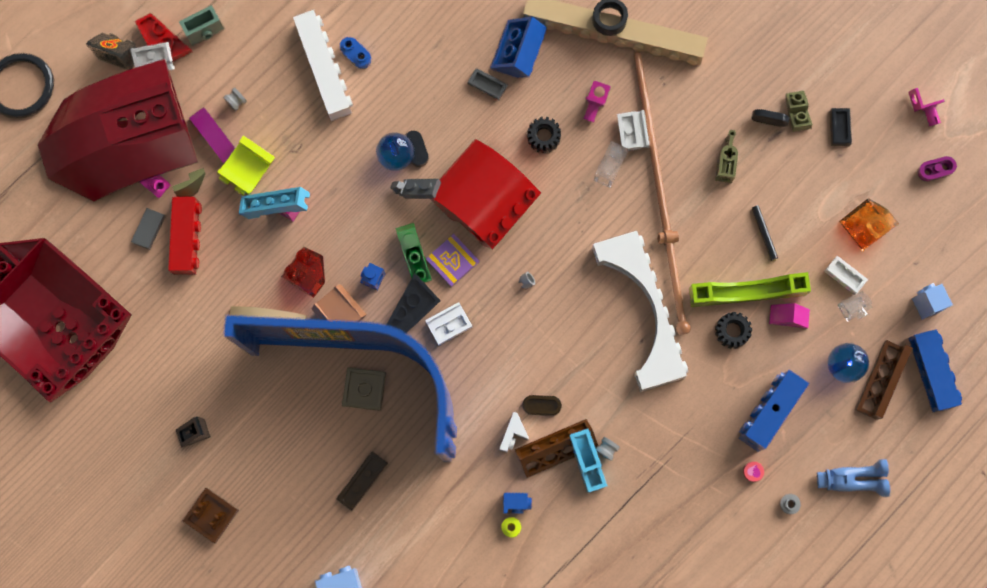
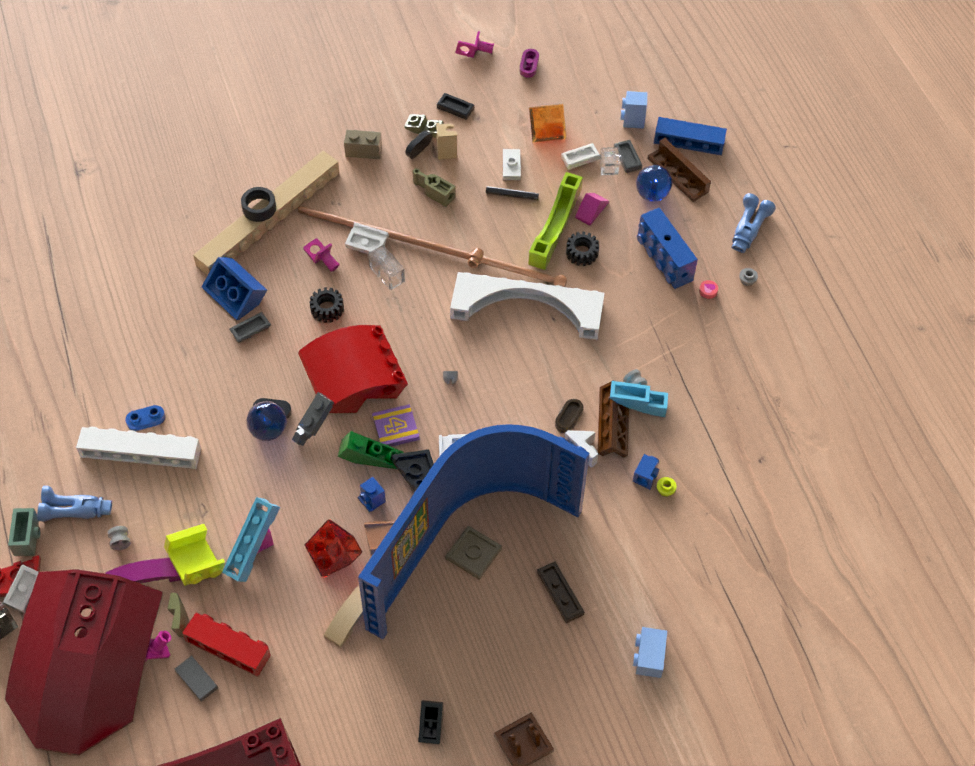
camera: 70 degrees left, 20 degrees down
(249, 56) = (82, 506): none -> medium blue piece
(740, 68) = (363, 144): none -> dark tan brick
(779, 142) = (446, 141): none -> tan hinge
(799, 215) = (511, 164): none -> white plate
(875, 320) = (630, 159): none -> dark grey tile

